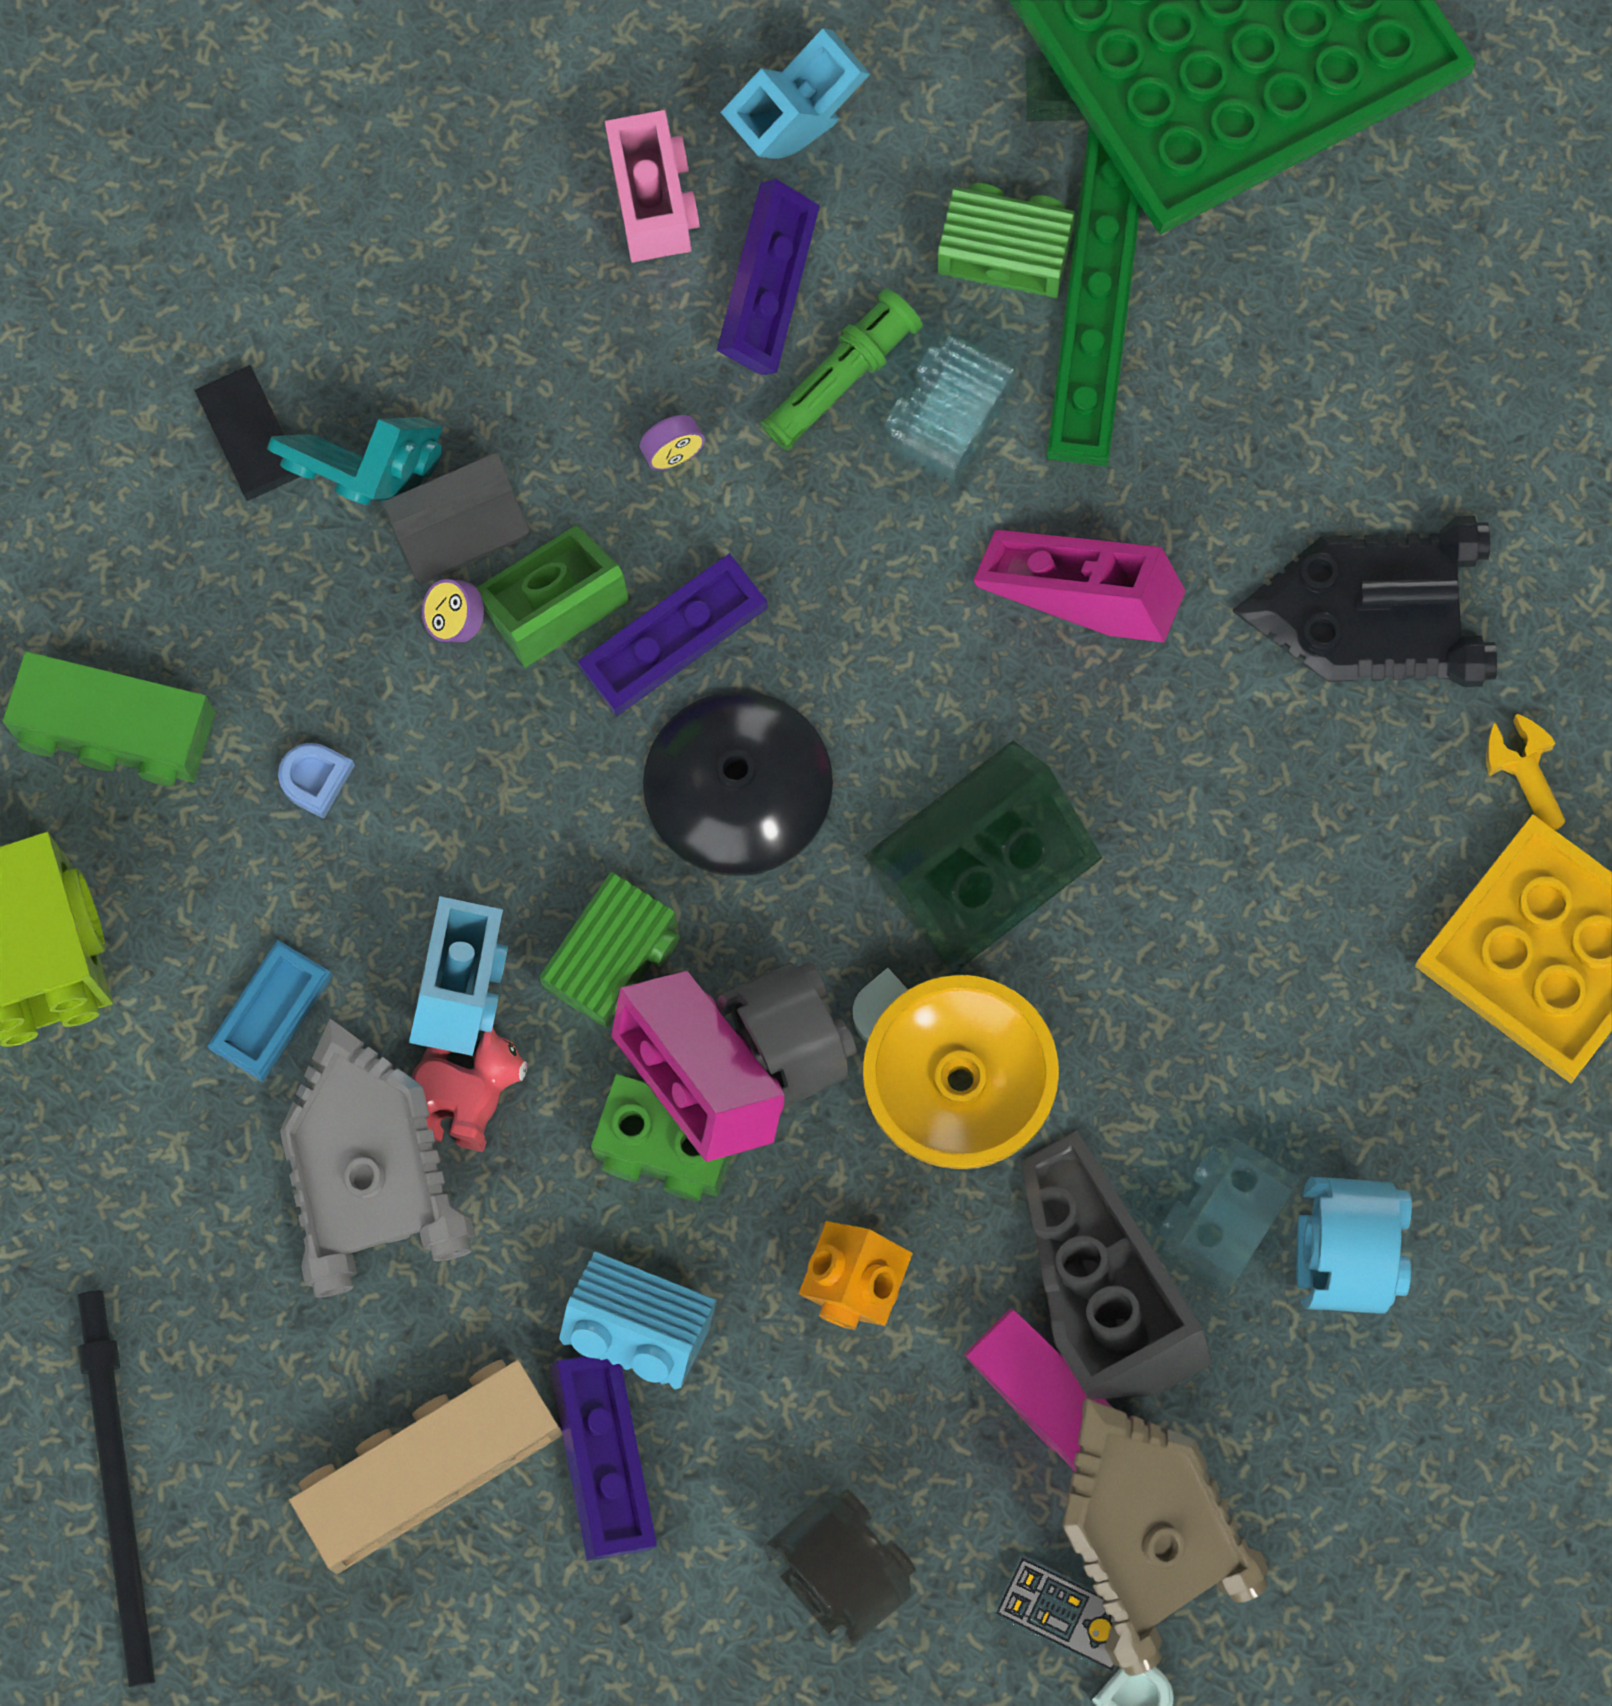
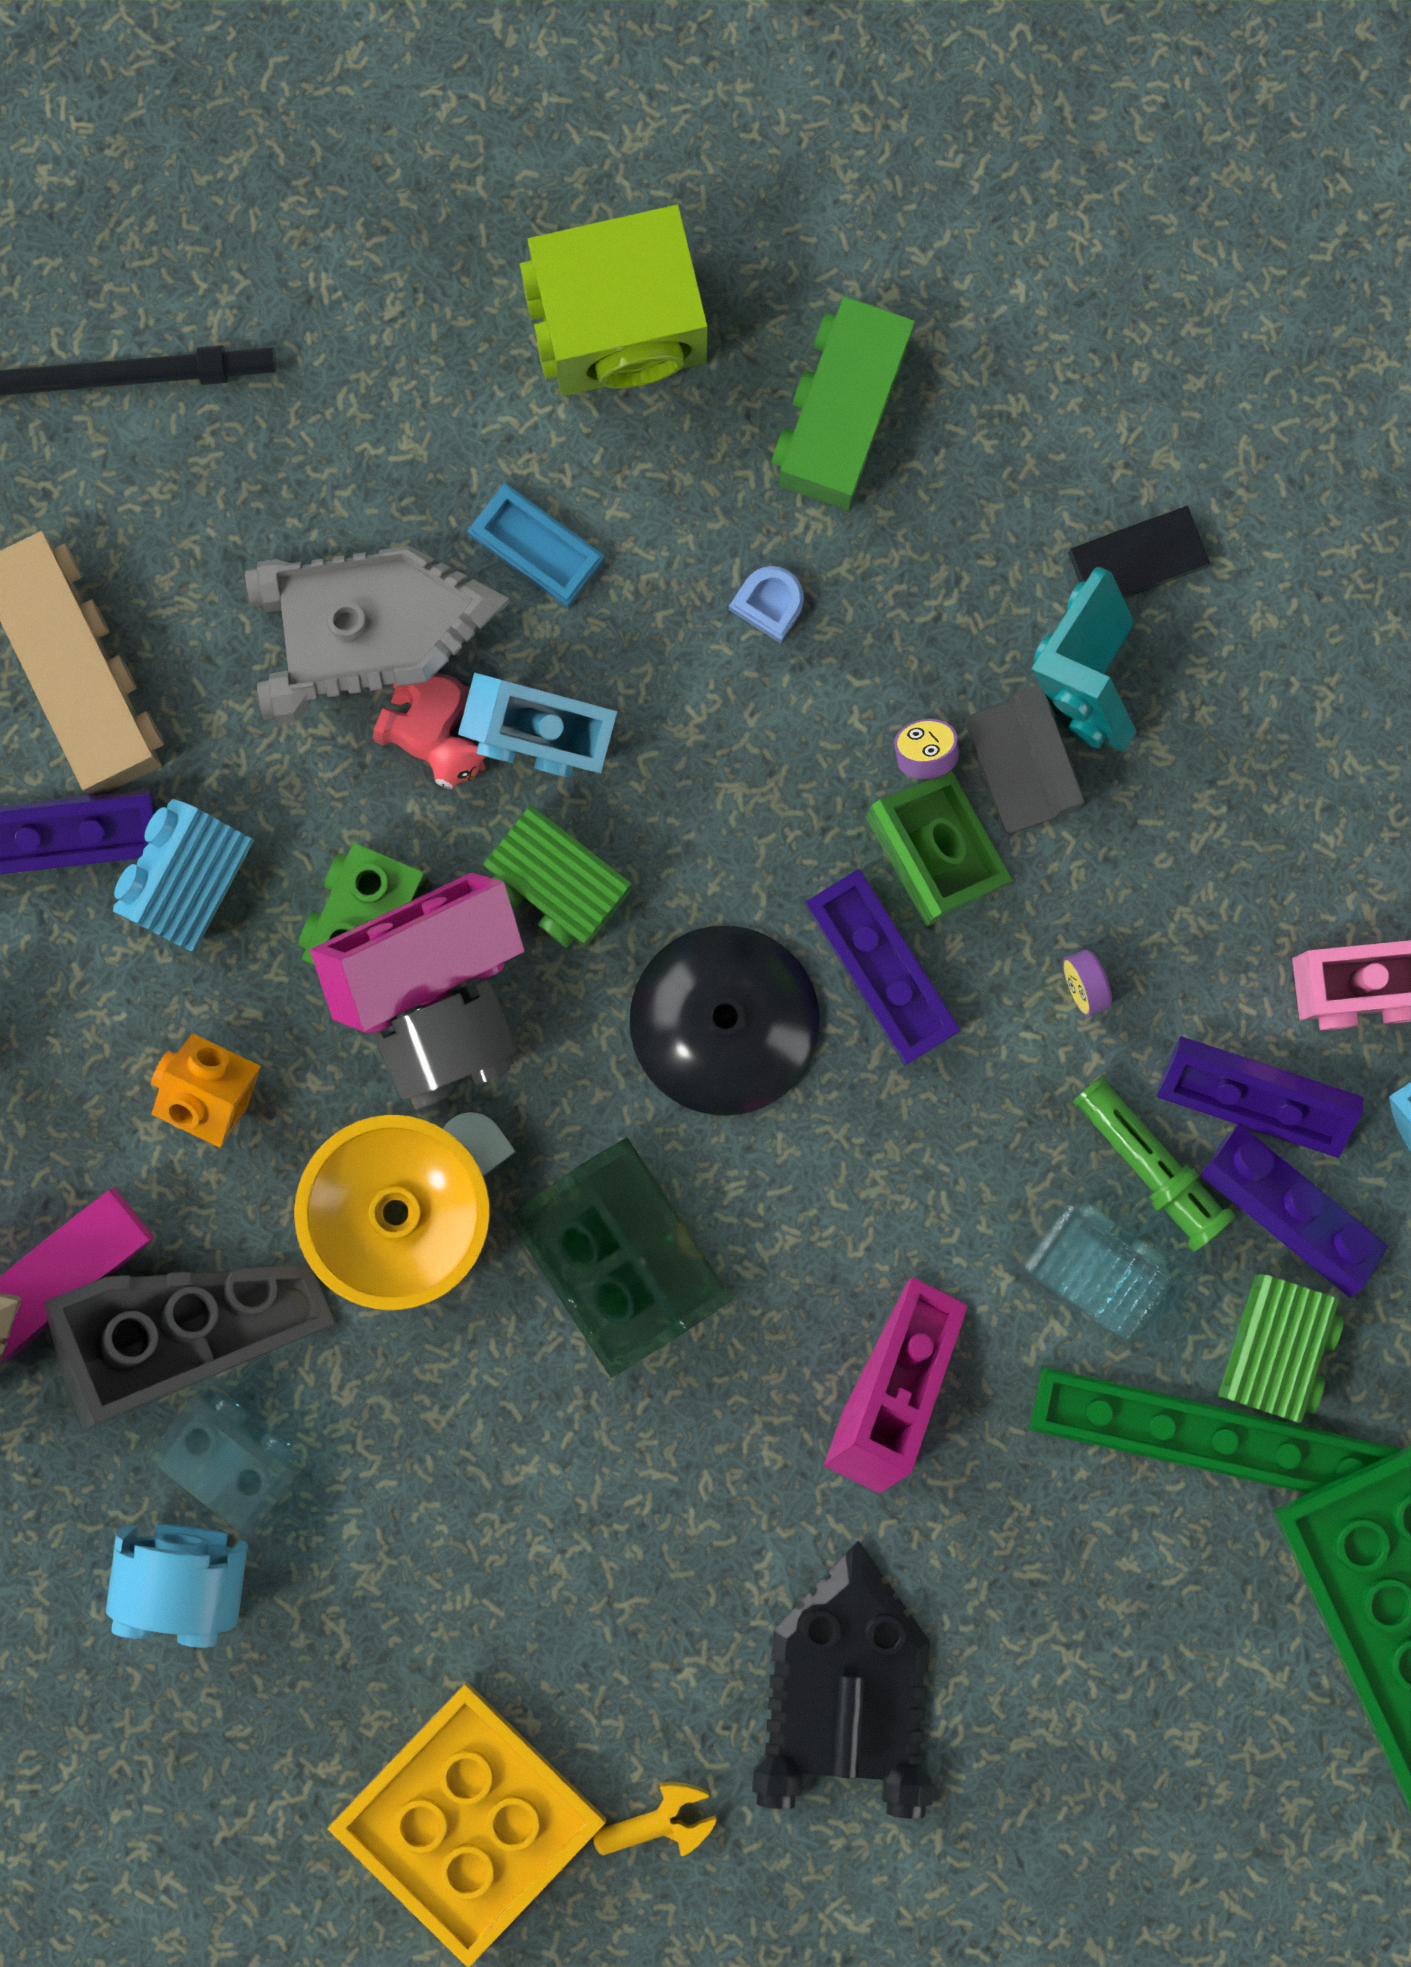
camera: 85 degrees right, 10 degrees up
(873, 239) = (1294, 1210): none -> dark purple plate

